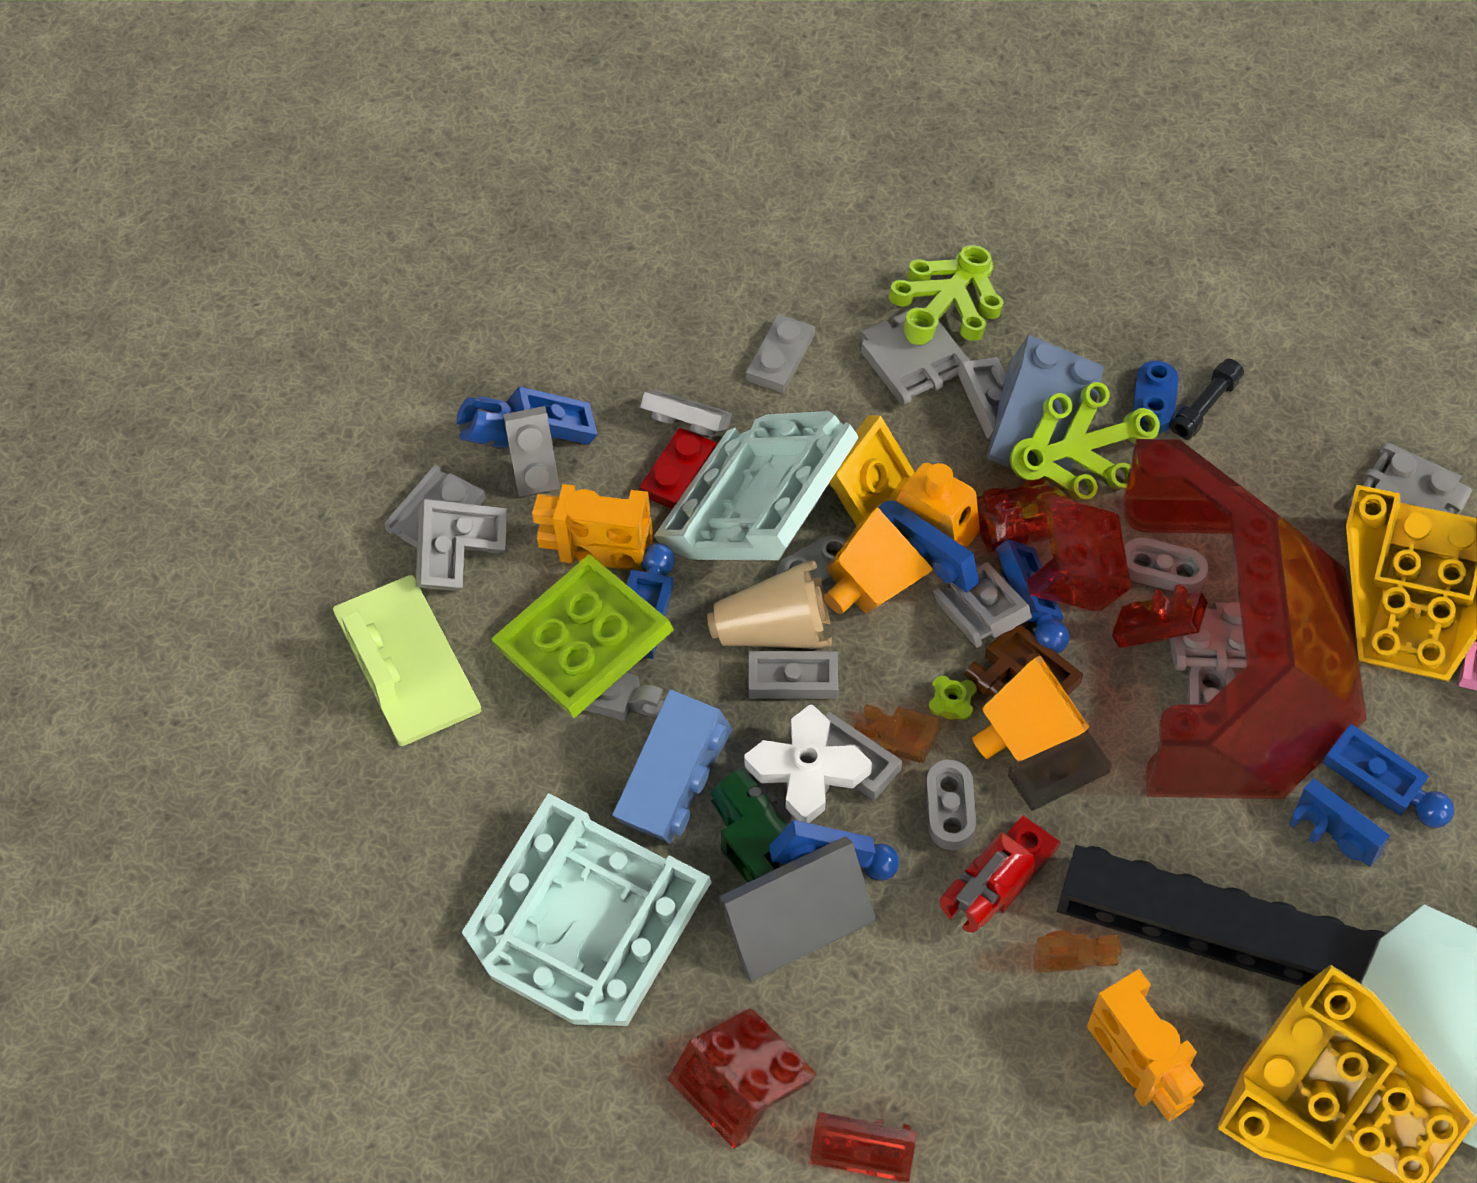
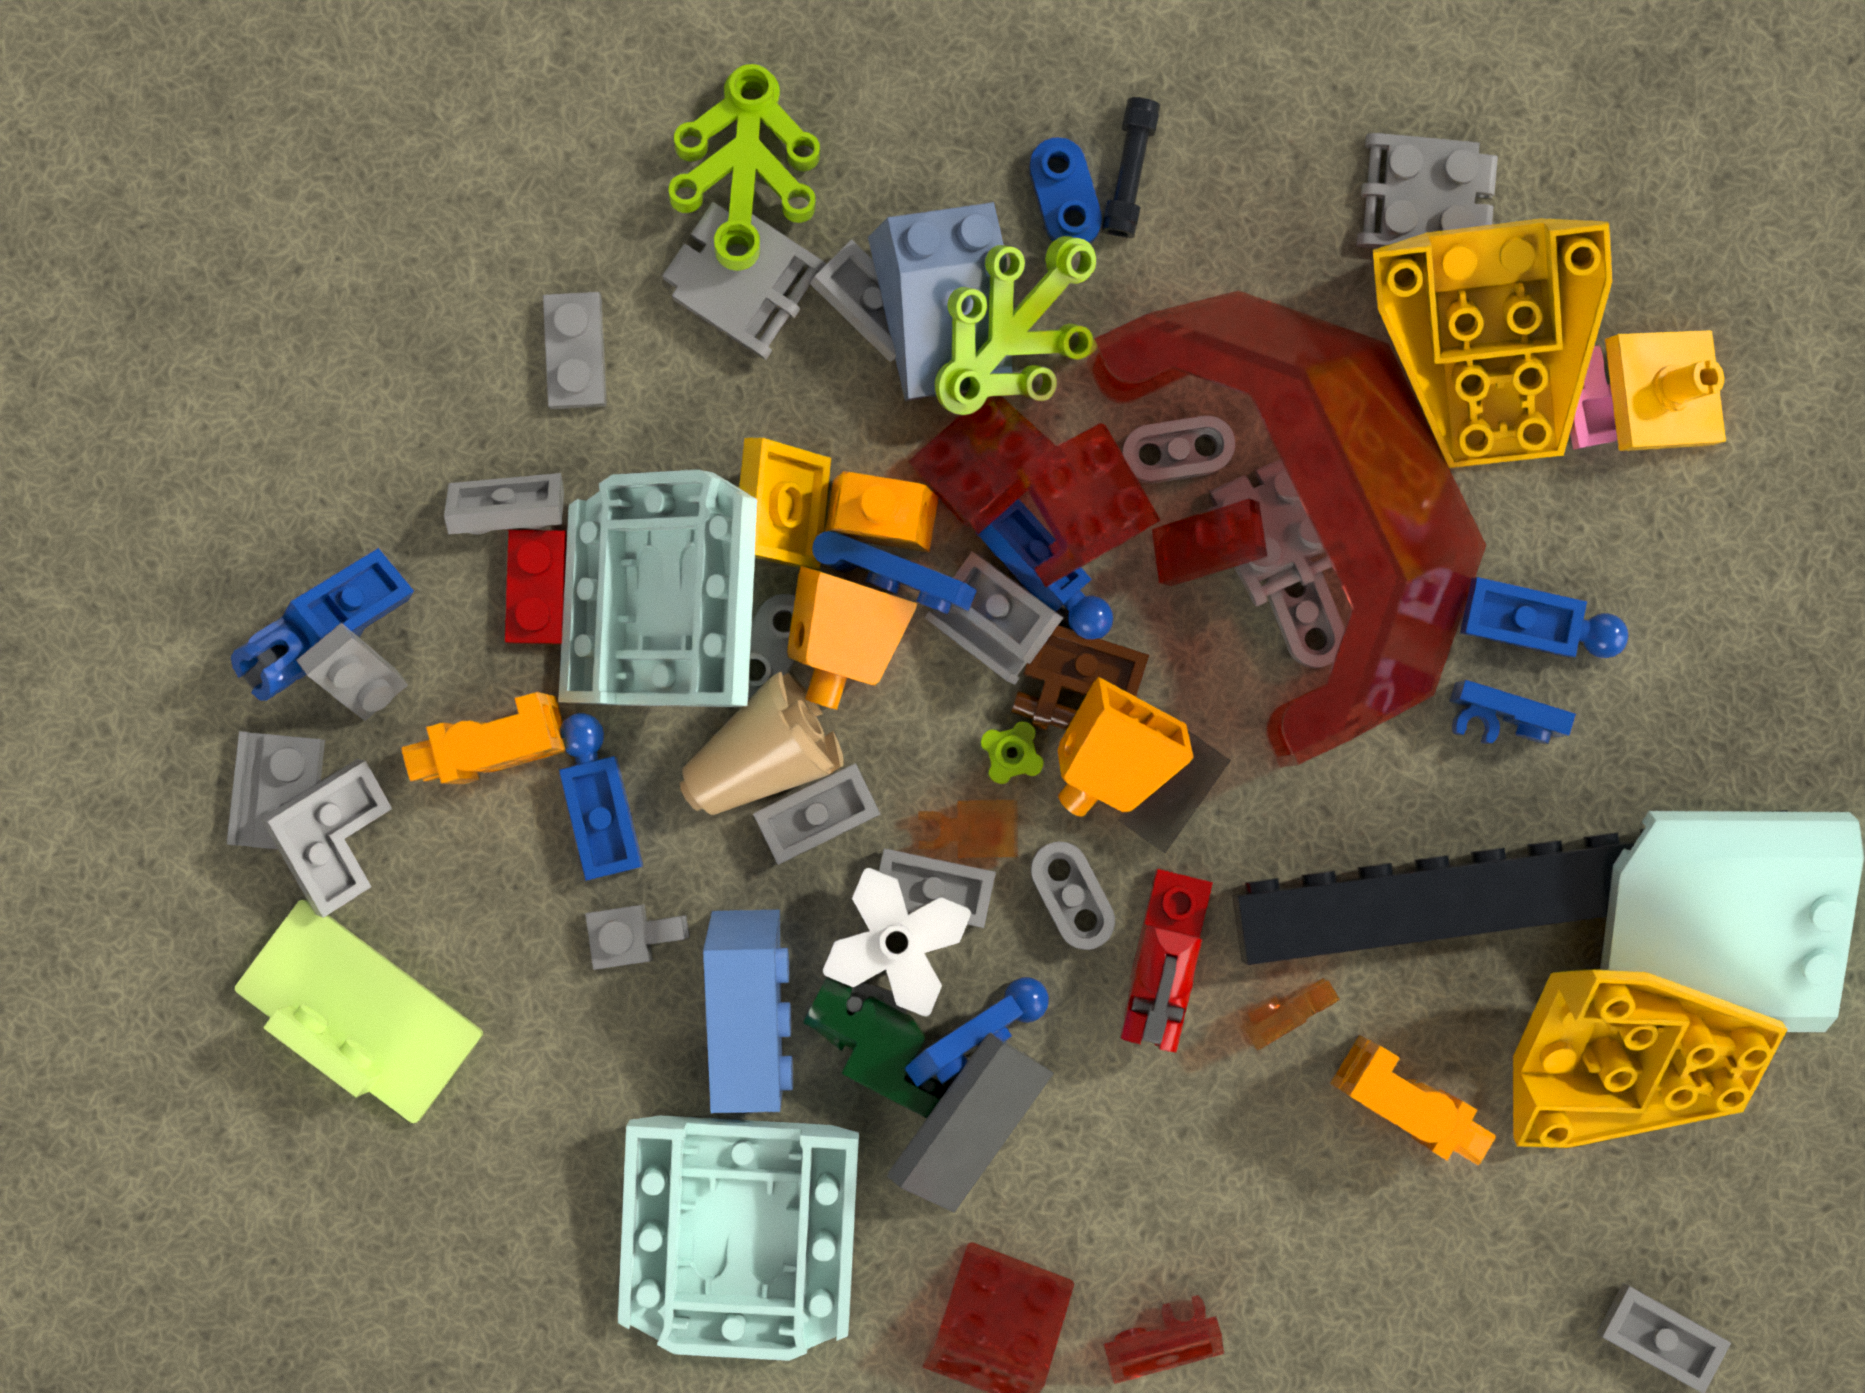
camera: 25 degrees left, 30 degrees up
(582, 635) = (551, 895): lime plate -> none

